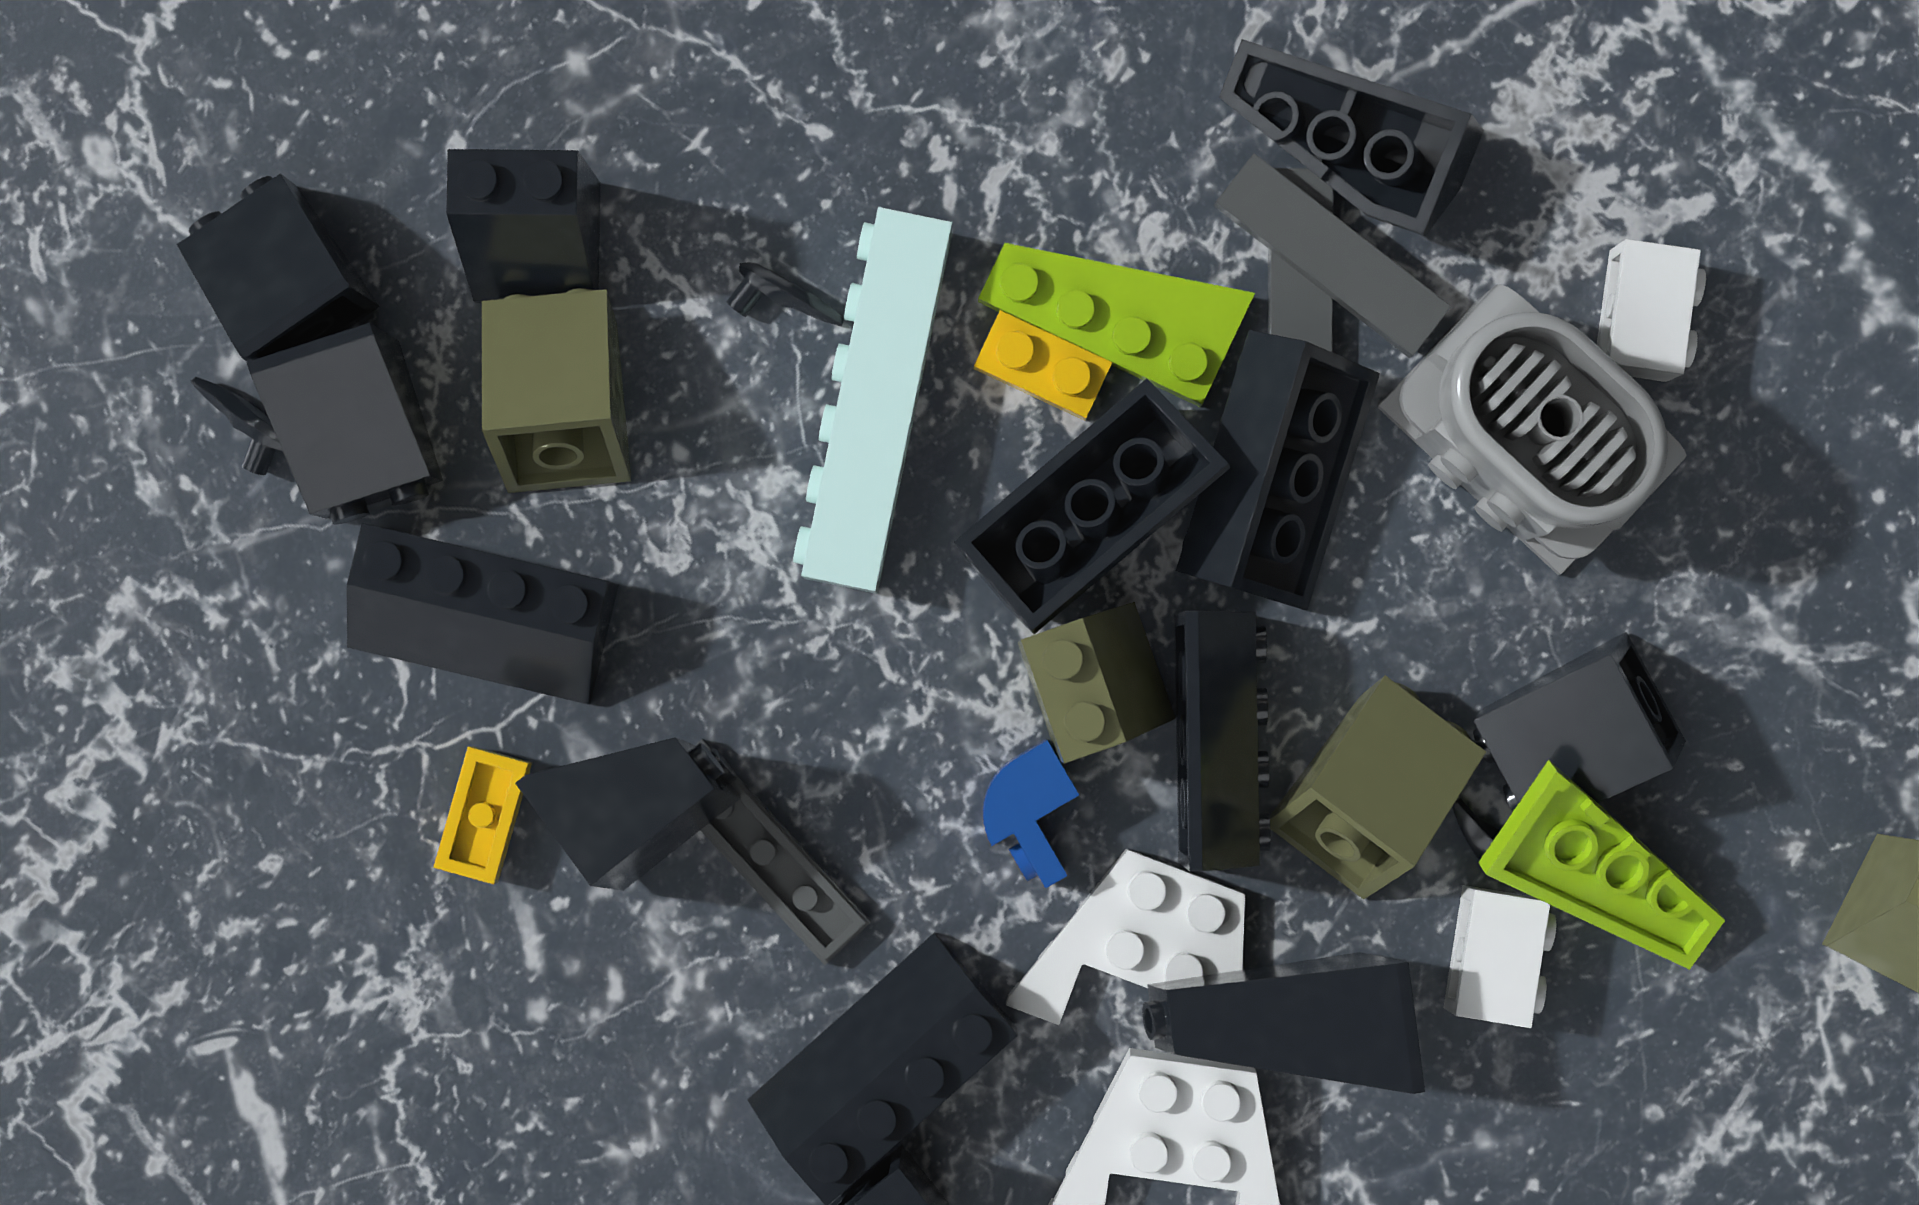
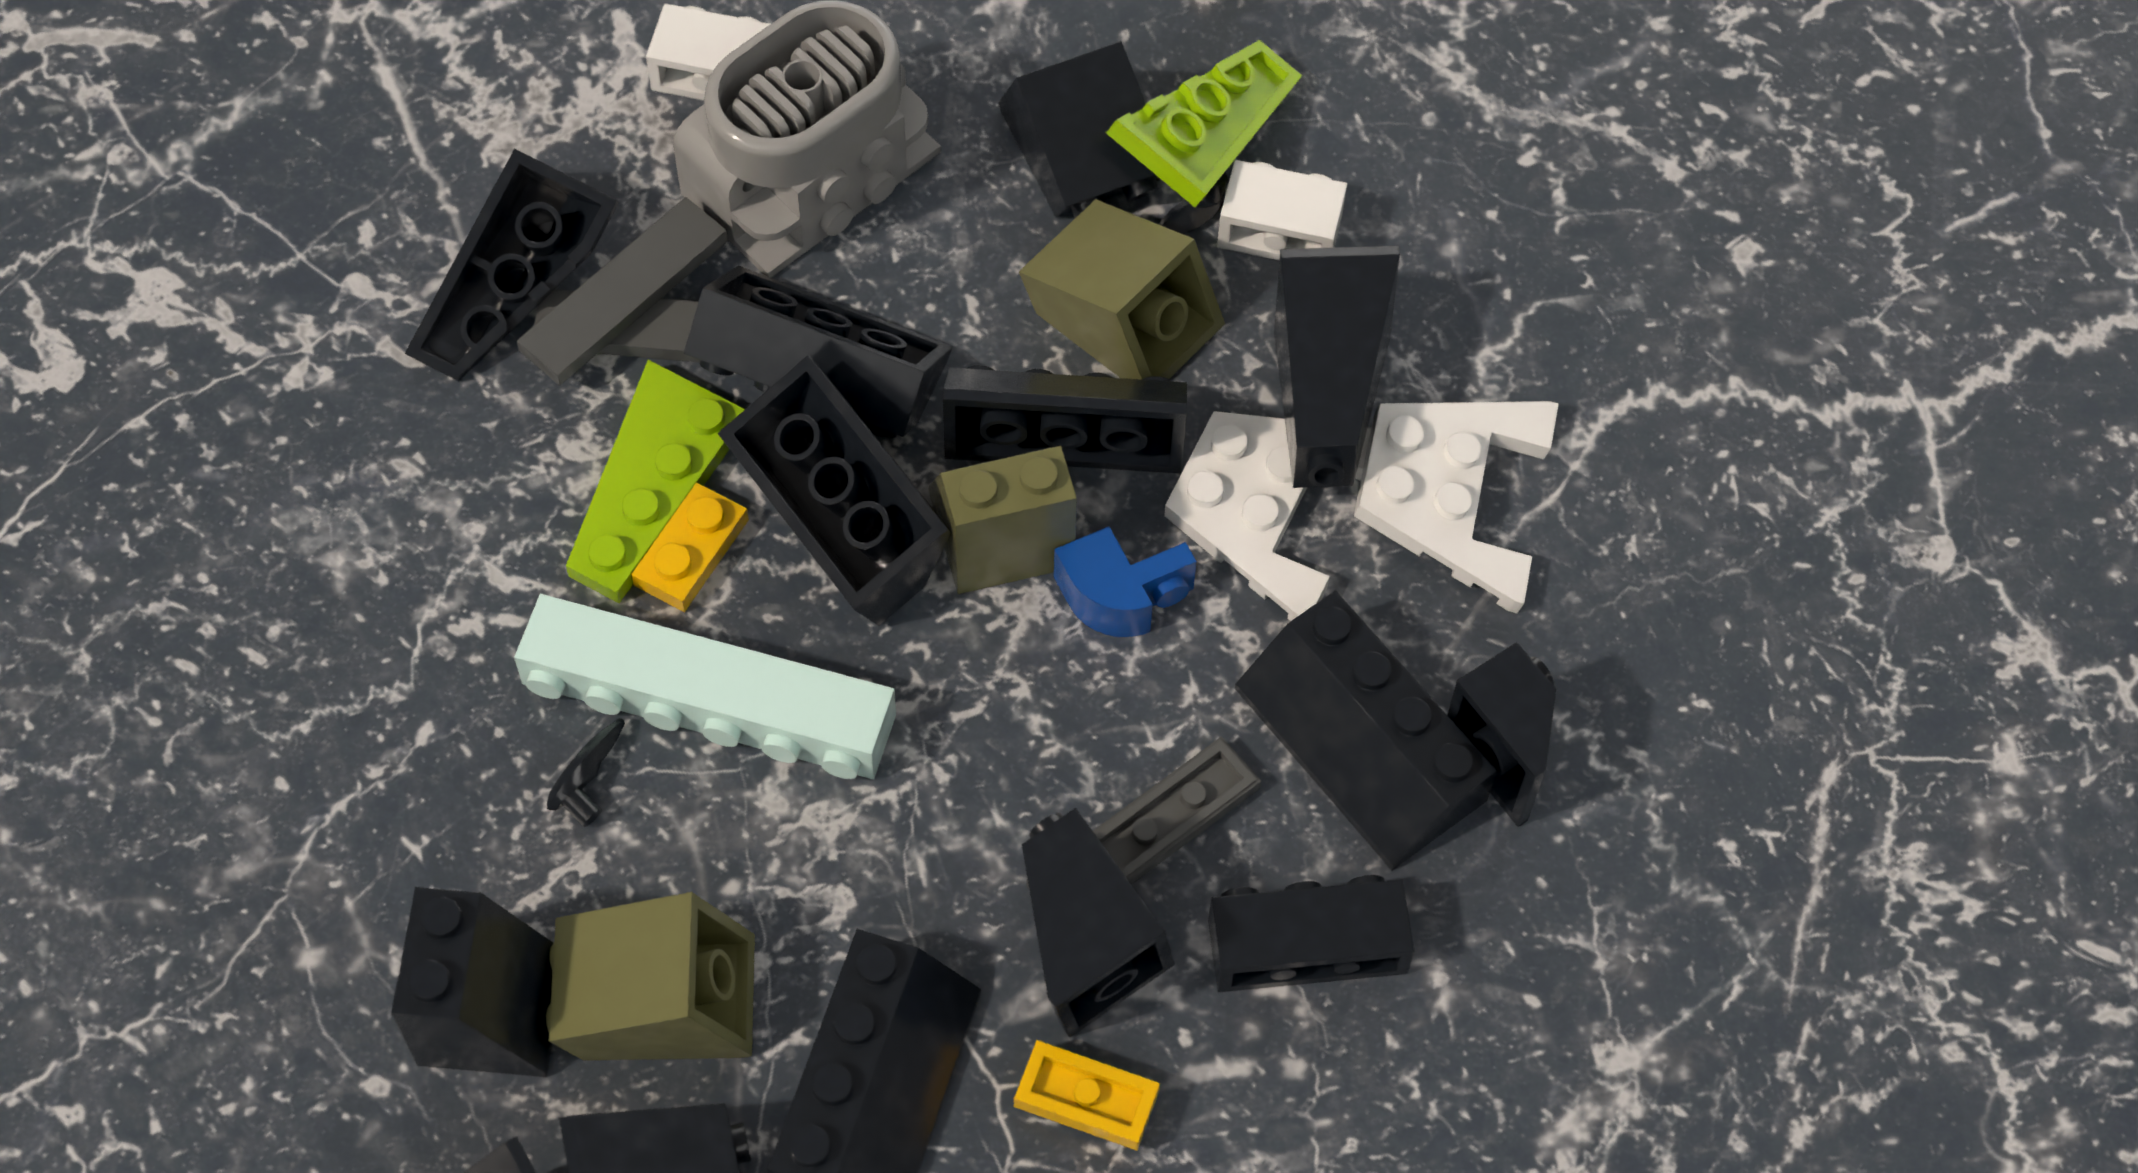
camera: 90 degrees left, 25 degrees down
(660, 1022) = (1310, 934): none -> black brick

